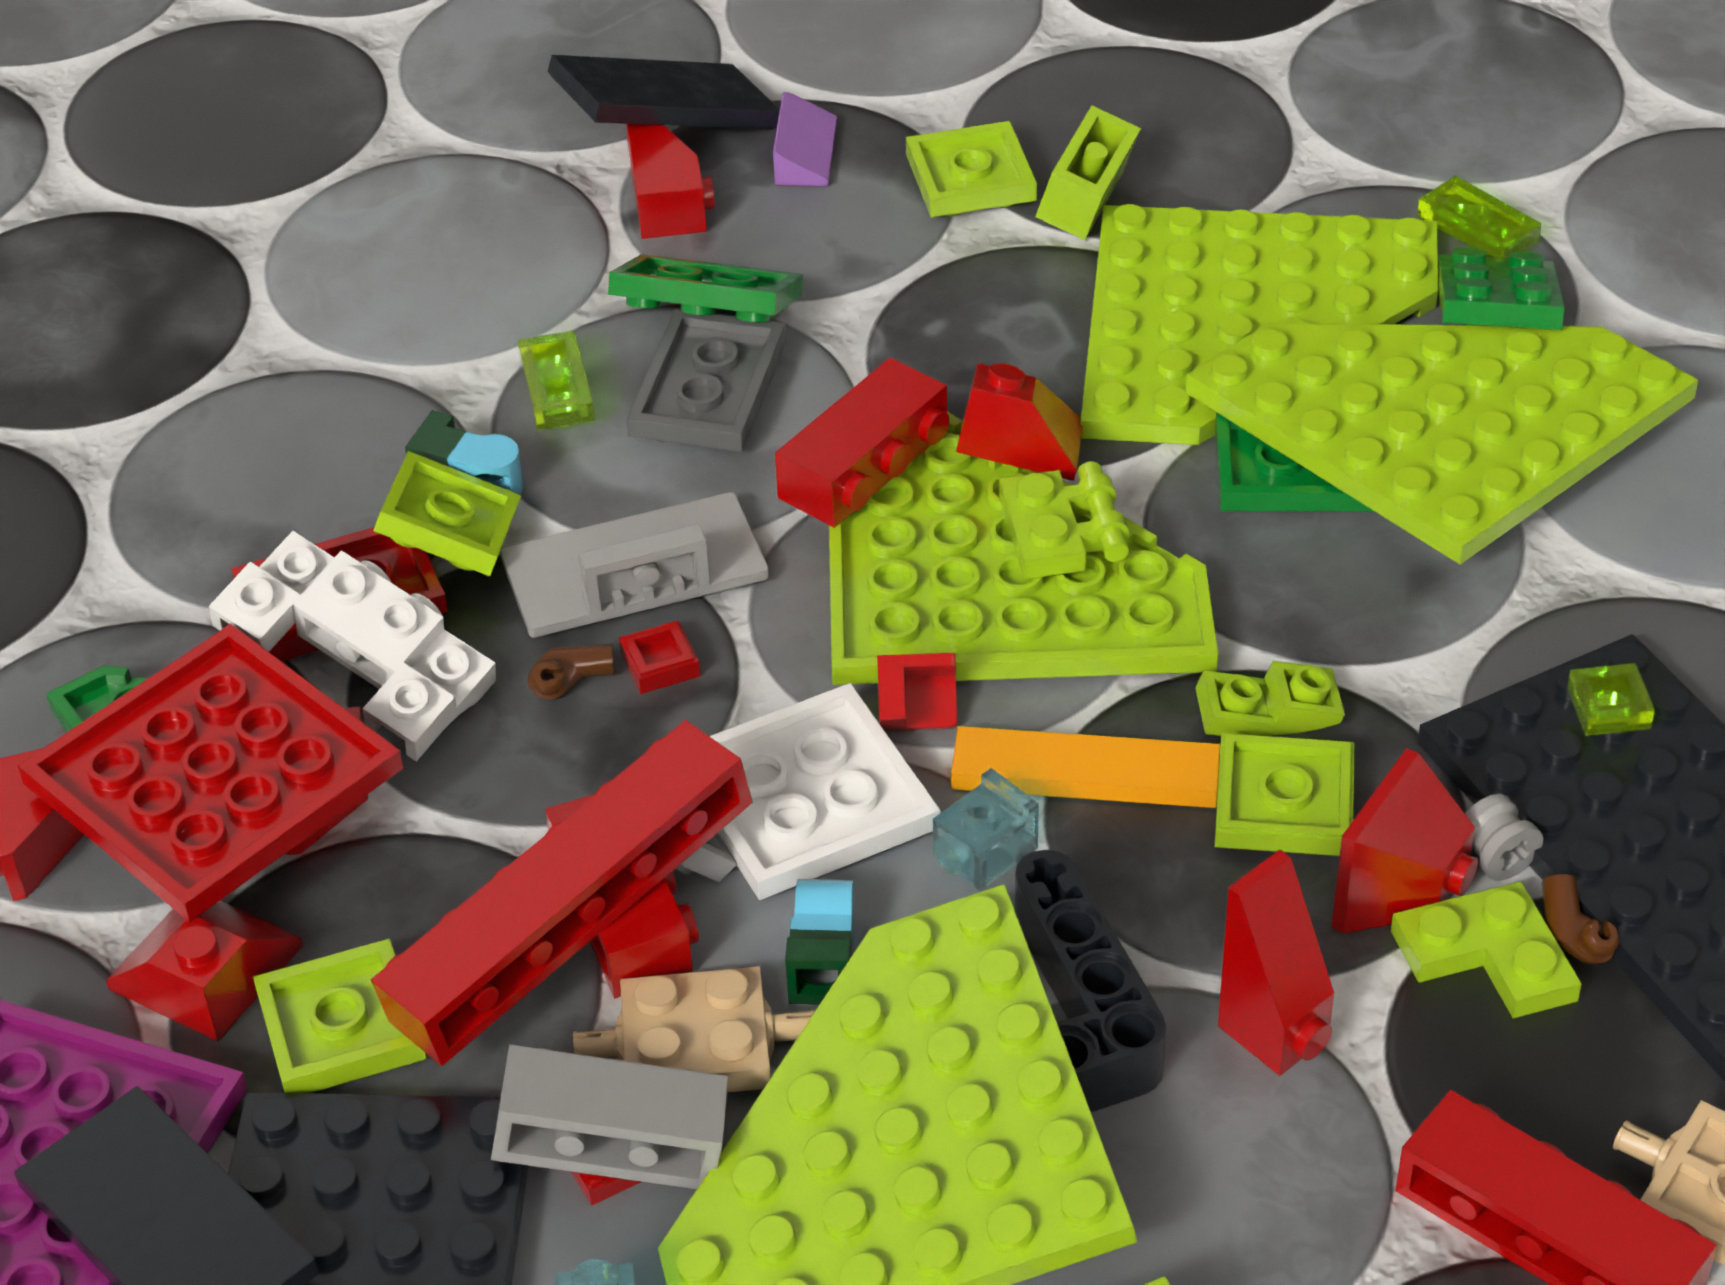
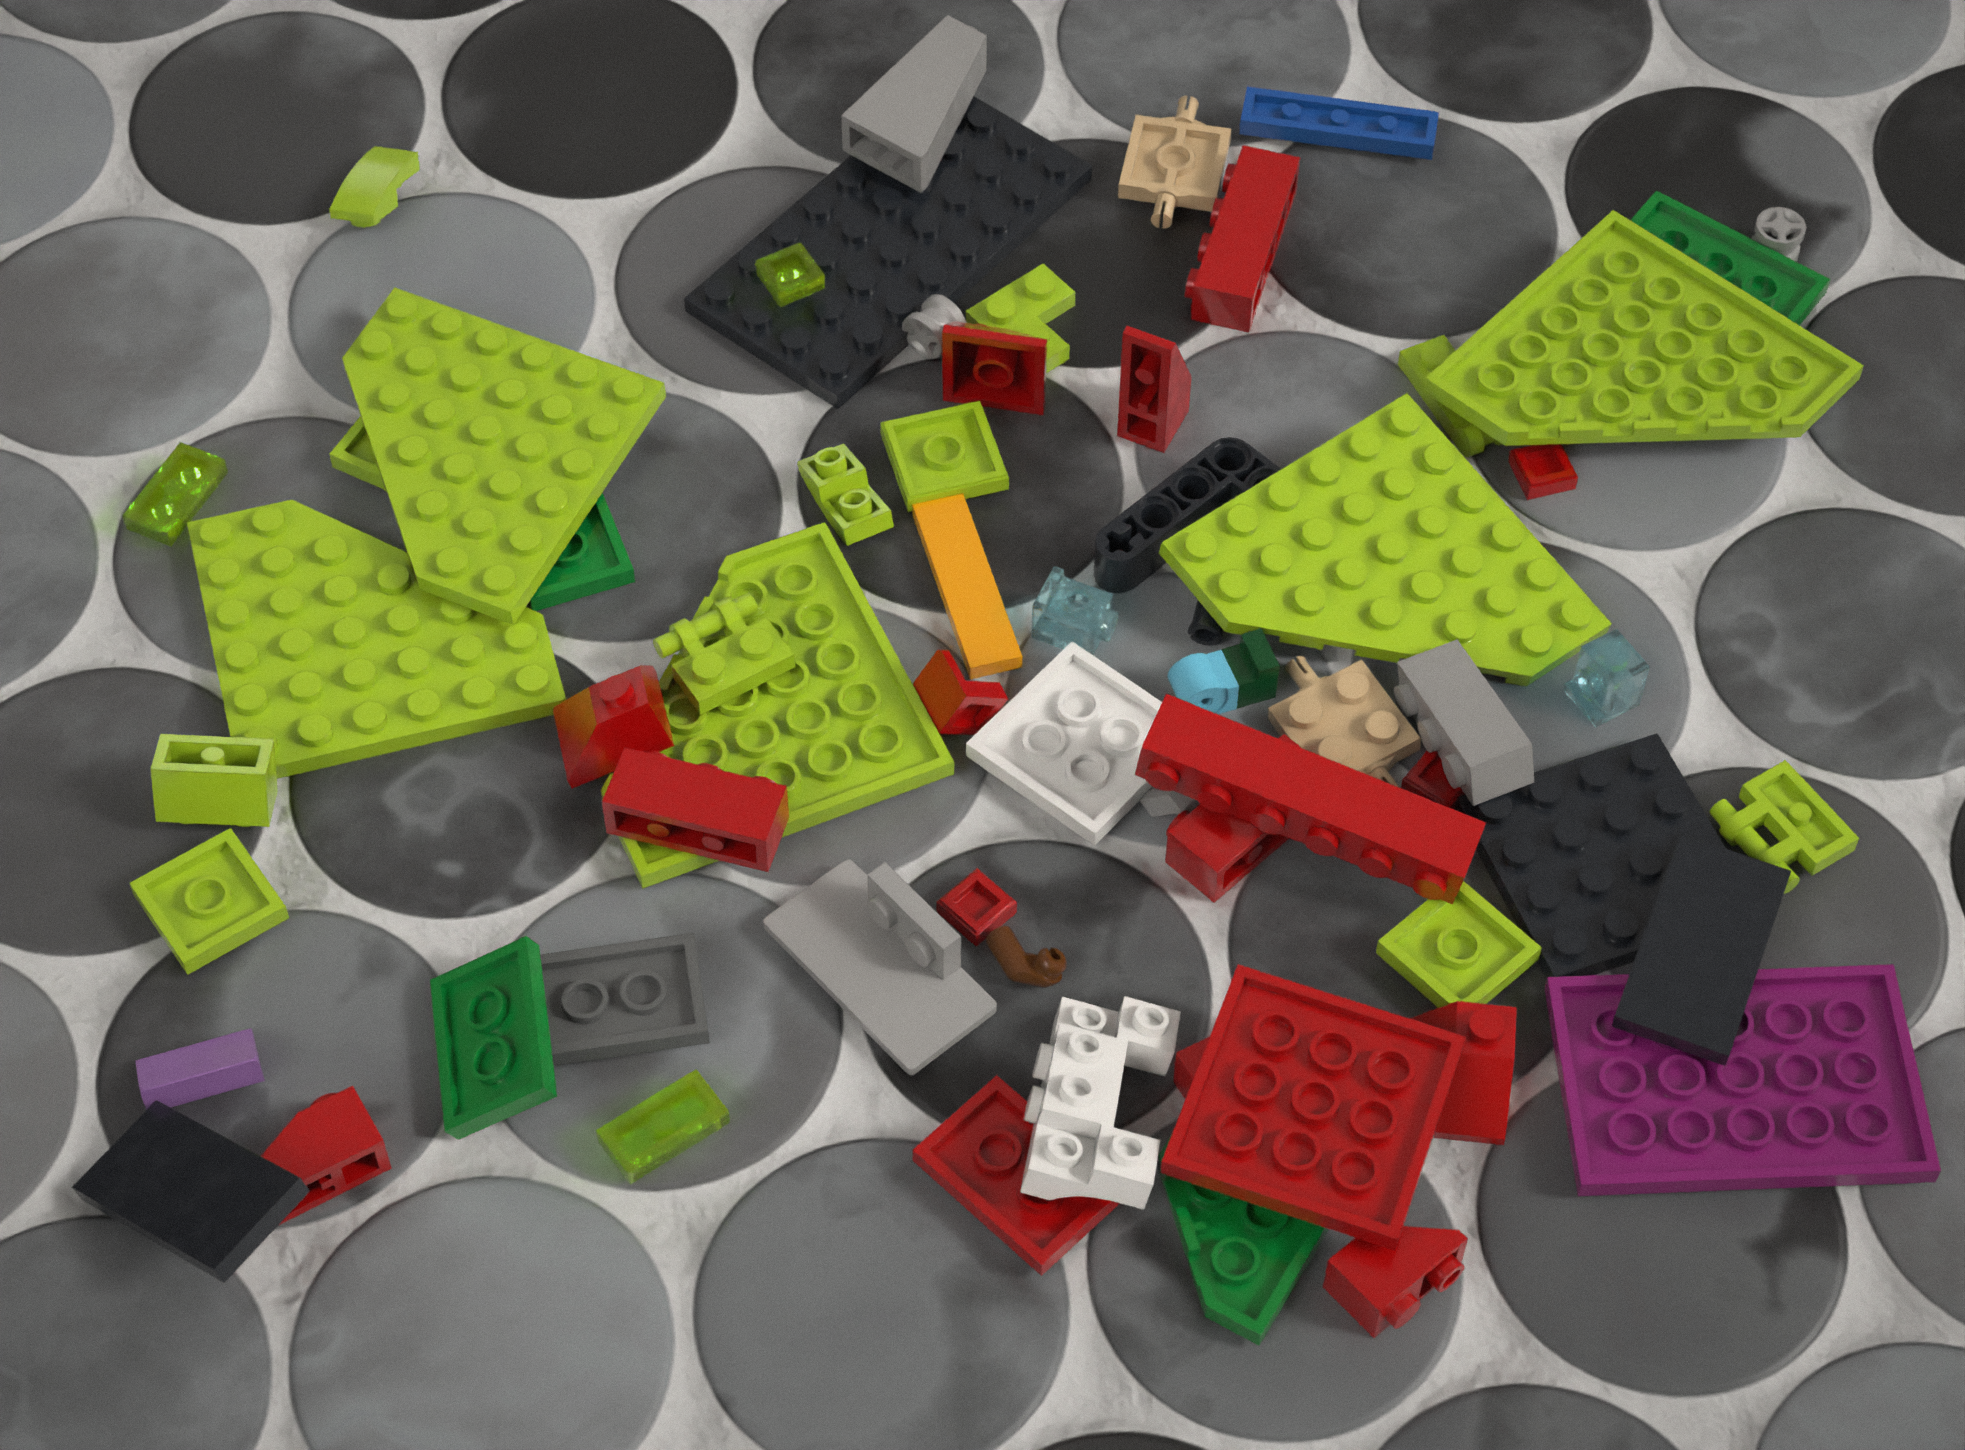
camera: 115 degrees left, 10 degrees up
(447, 513) = (903, 1109): lime plate -> none
(486, 457) = (814, 1132): medium azure leg -> none
(1499, 290) = (302, 441): green plate -> none
(1572, 929) = (990, 278): reddish brown arm -> none

